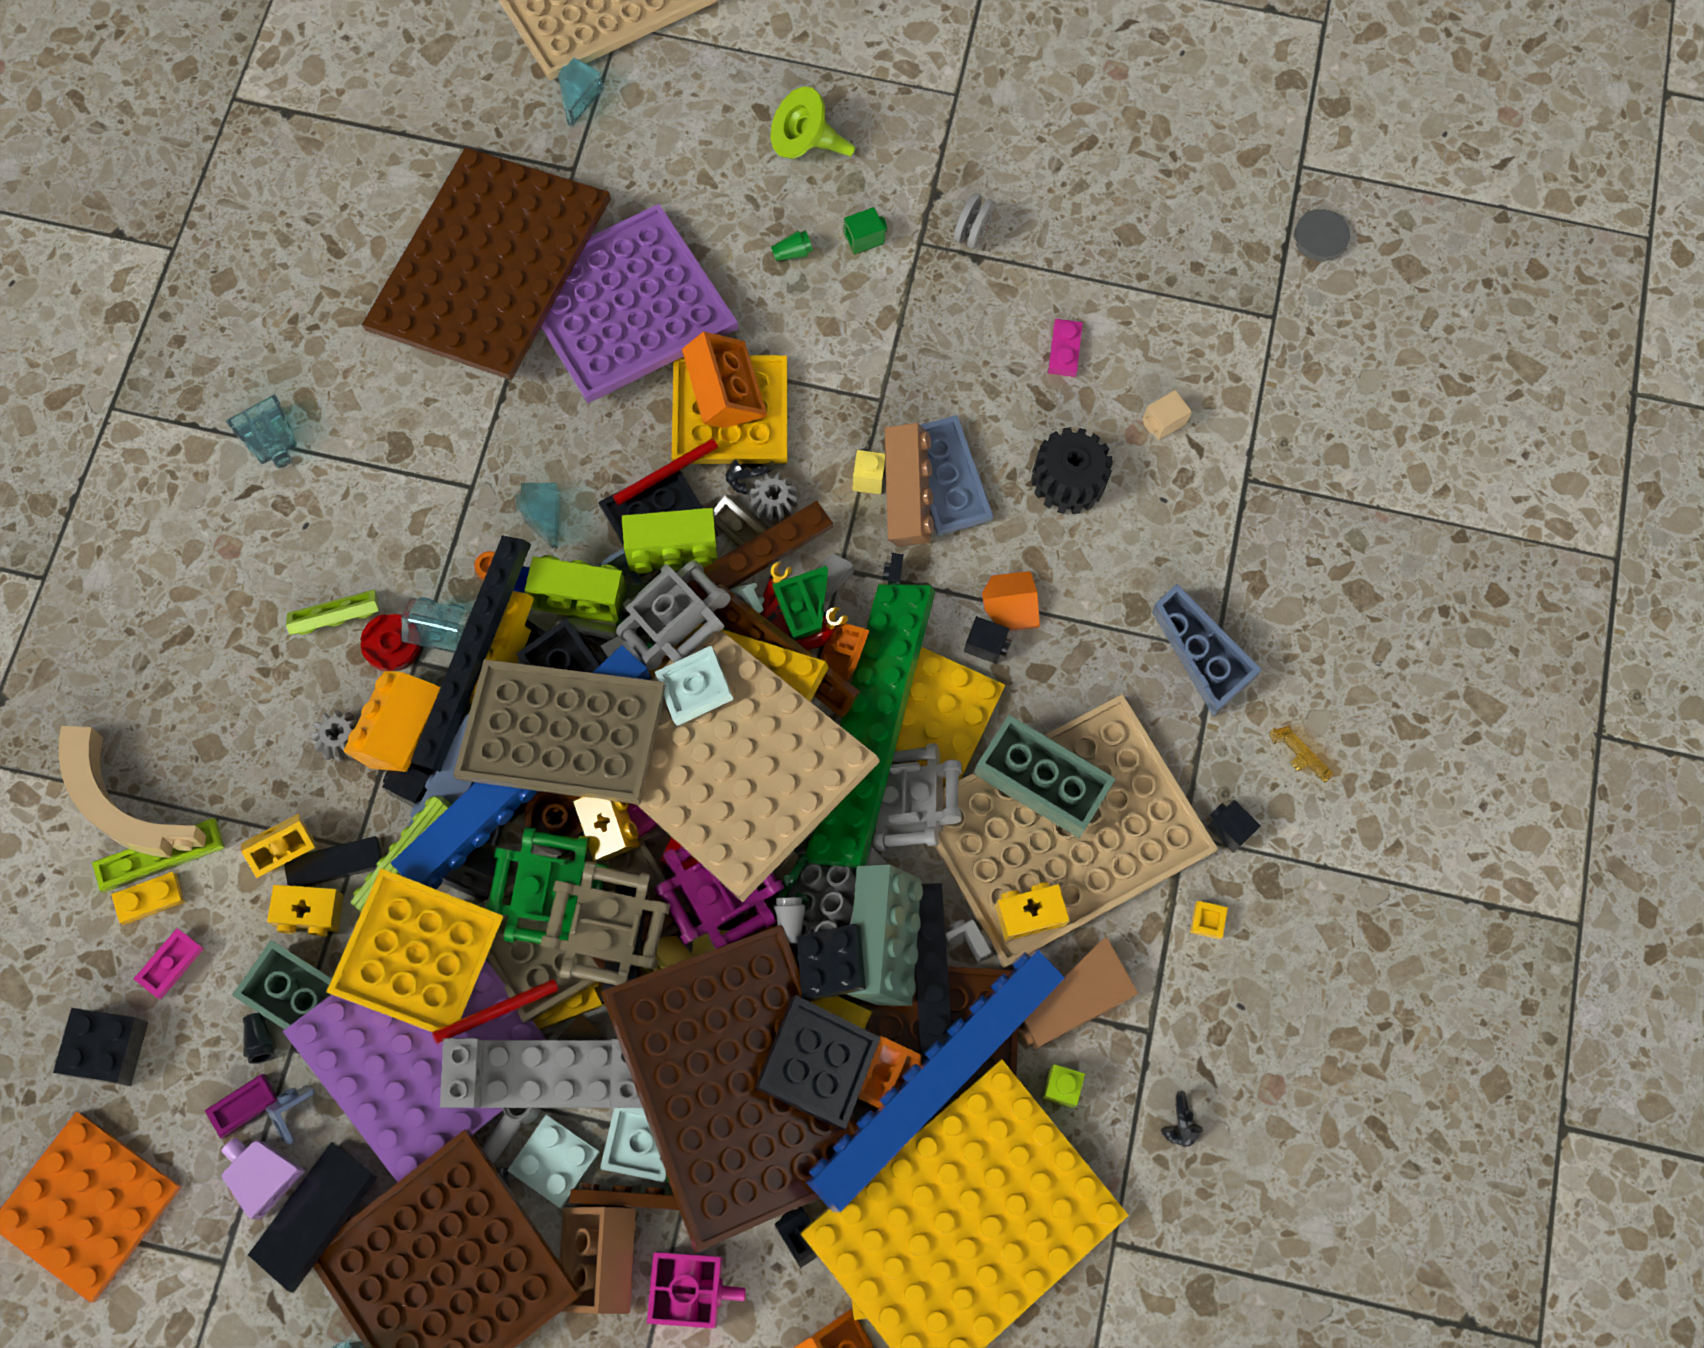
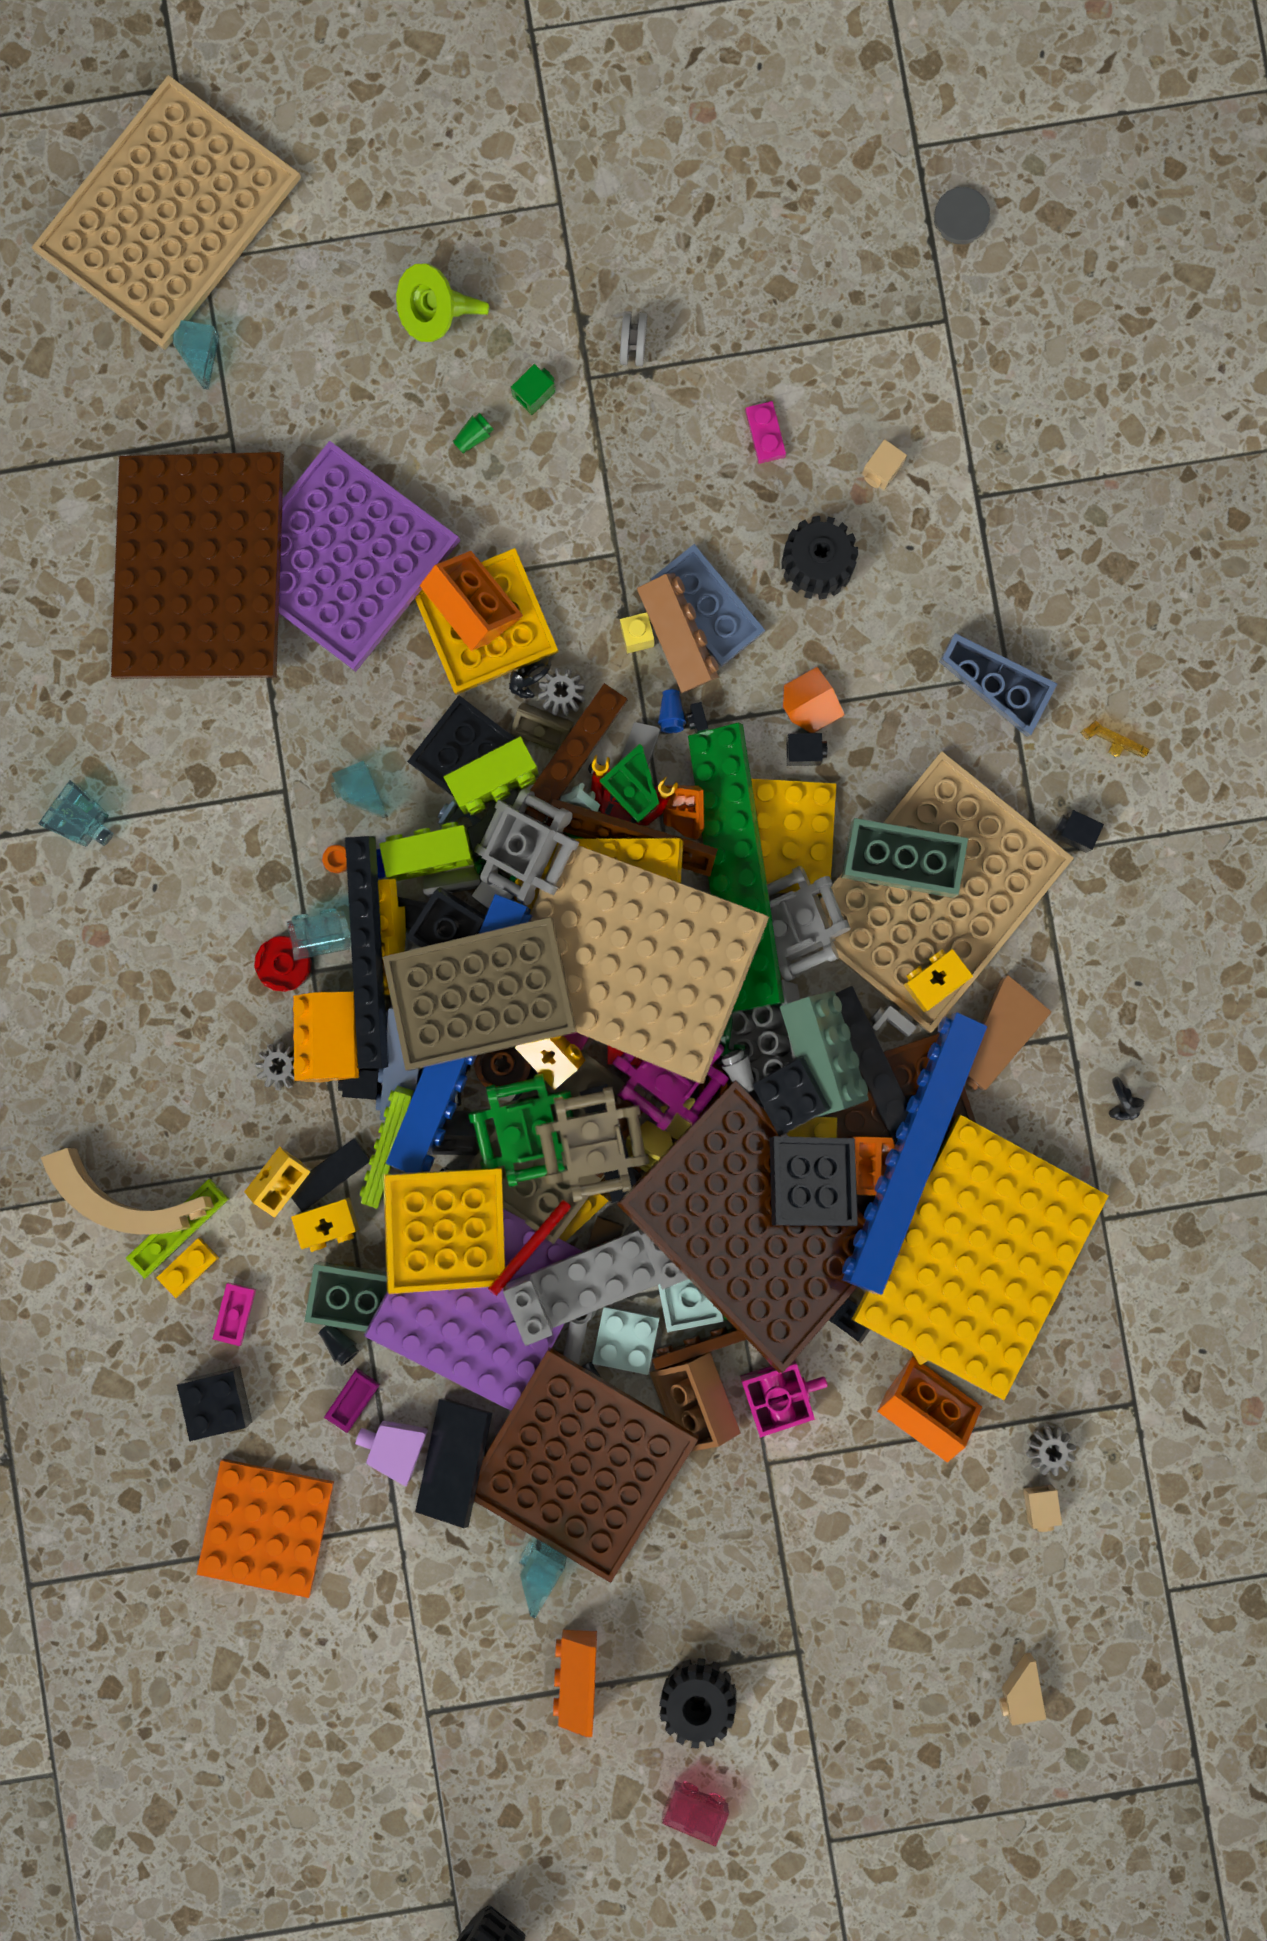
camera: 15 degrees left, 15 degrees up
(285, 1101) = (388, 1385): sand blue bracket -> none
(332, 612) = (220, 959): lime plate -> none
(665, 471) = (455, 708): red bar -> none
(694, 685) = (577, 908): light aqua plate -> none
(870, 559) = (671, 712): none -> blue cone
(1063, 1086) = (1017, 1113): lime brick -> none
(1208, 920) = (1086, 922): yellow plate -> none

